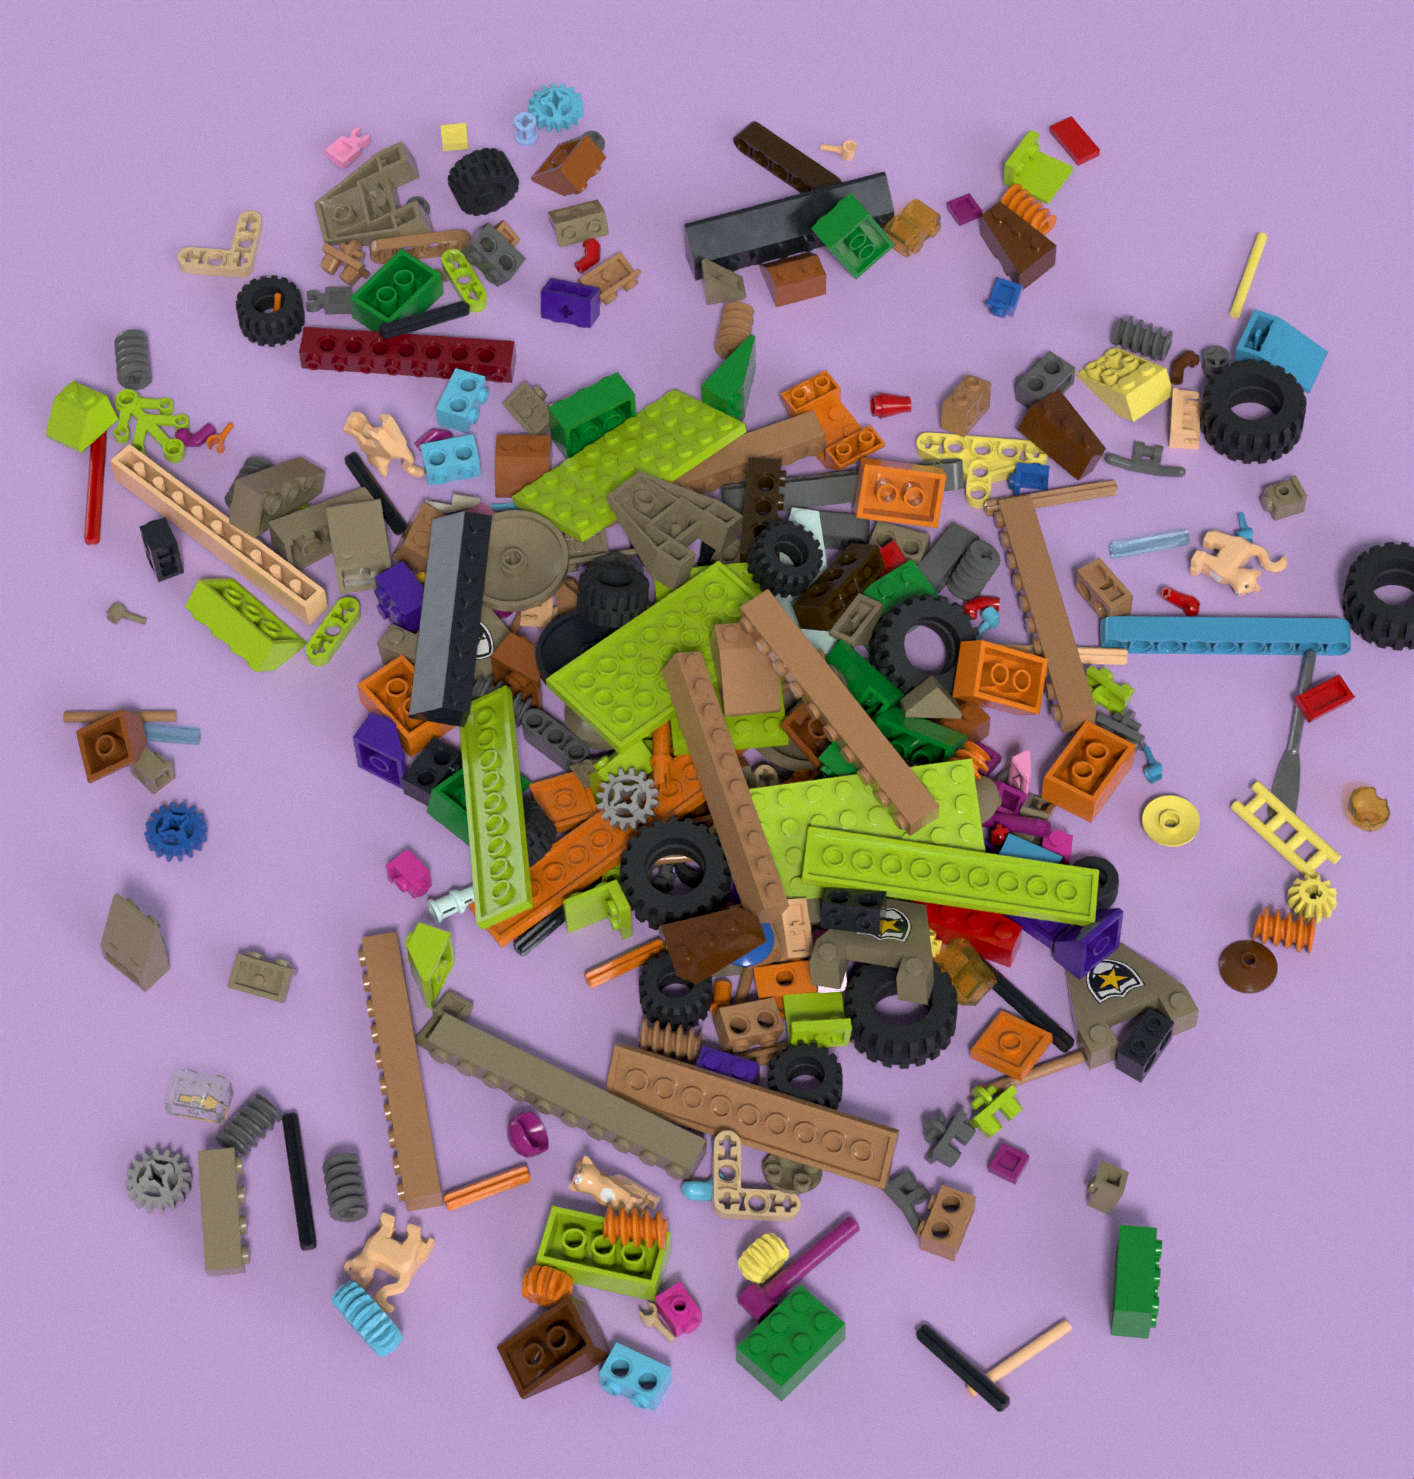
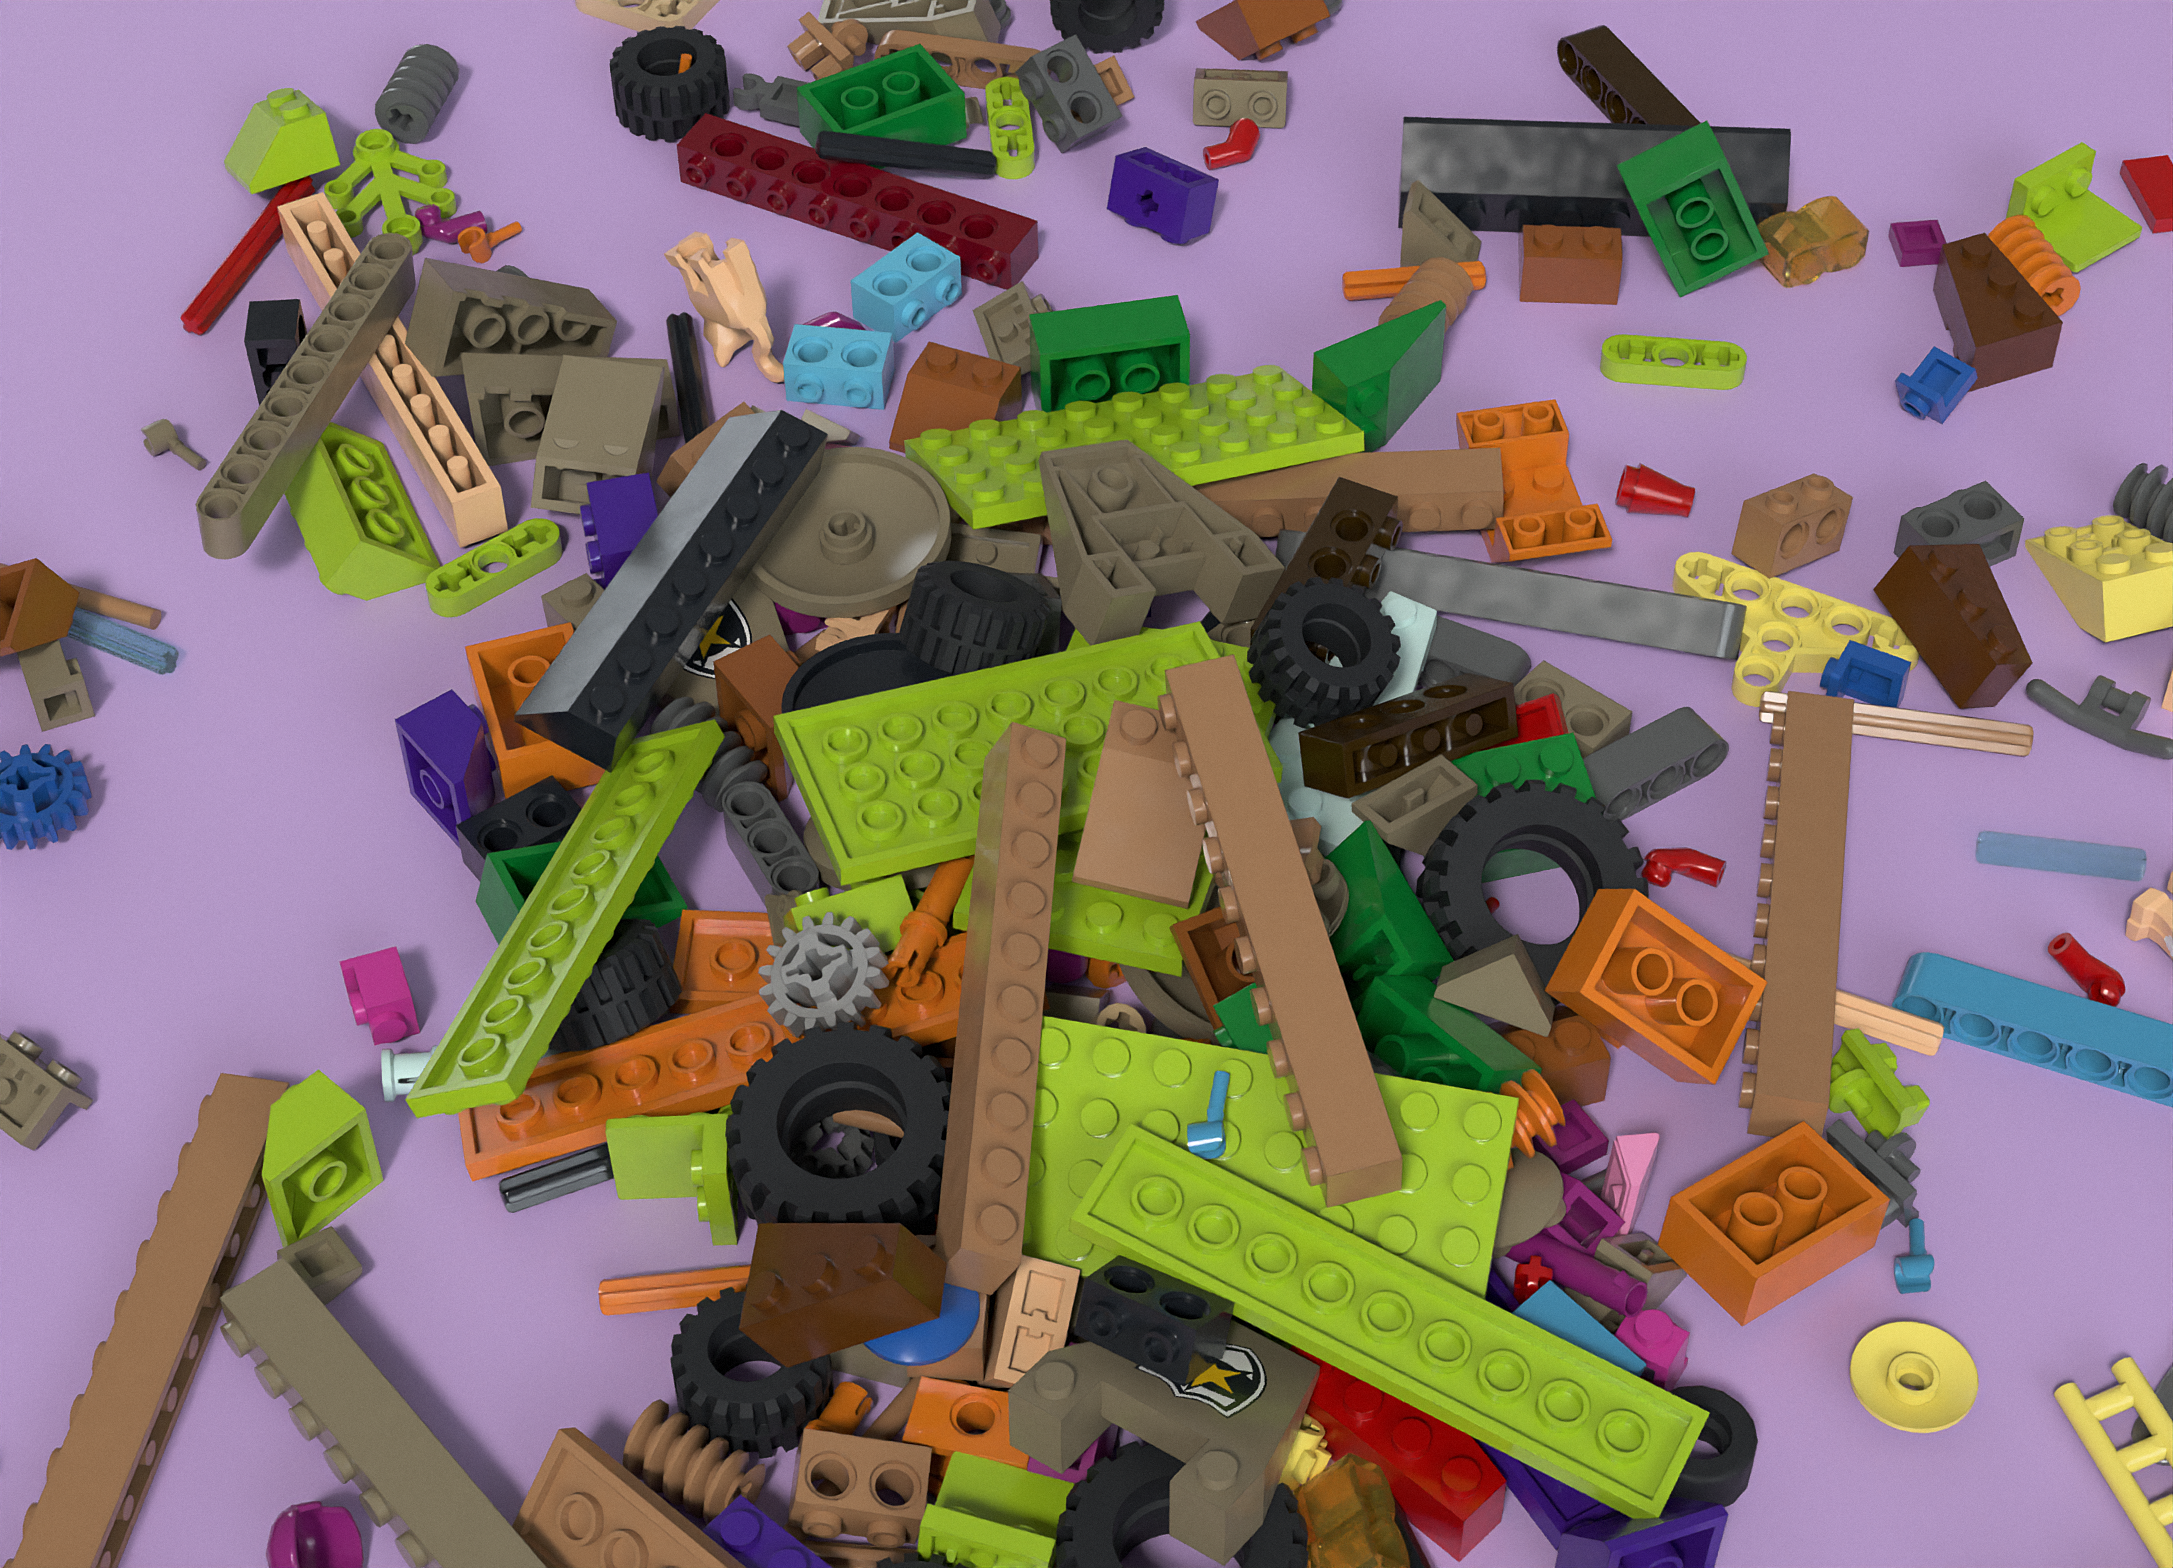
camera: 20 degrees right, 10 degrees down
(203, 571) = (305, 397): none -> dark tan beam
(612, 277) = (1253, 183): medium nougat bracket -> none
(713, 315) = (1389, 281): none -> orange axle
(844, 821) = (1208, 1138): none -> dark azure hand
(847, 150) = (1746, 111): light nougat hand -> none
(862, 331) = (1690, 351): none -> lime beam
(899, 492) = (1600, 622): orange brick -> none
(974, 571) = (1691, 793): dark grey piece -> none
(991, 620) = (1693, 894): medium azure hand -> none
(1103, 590) = (1934, 901): medium nougat brick -> none

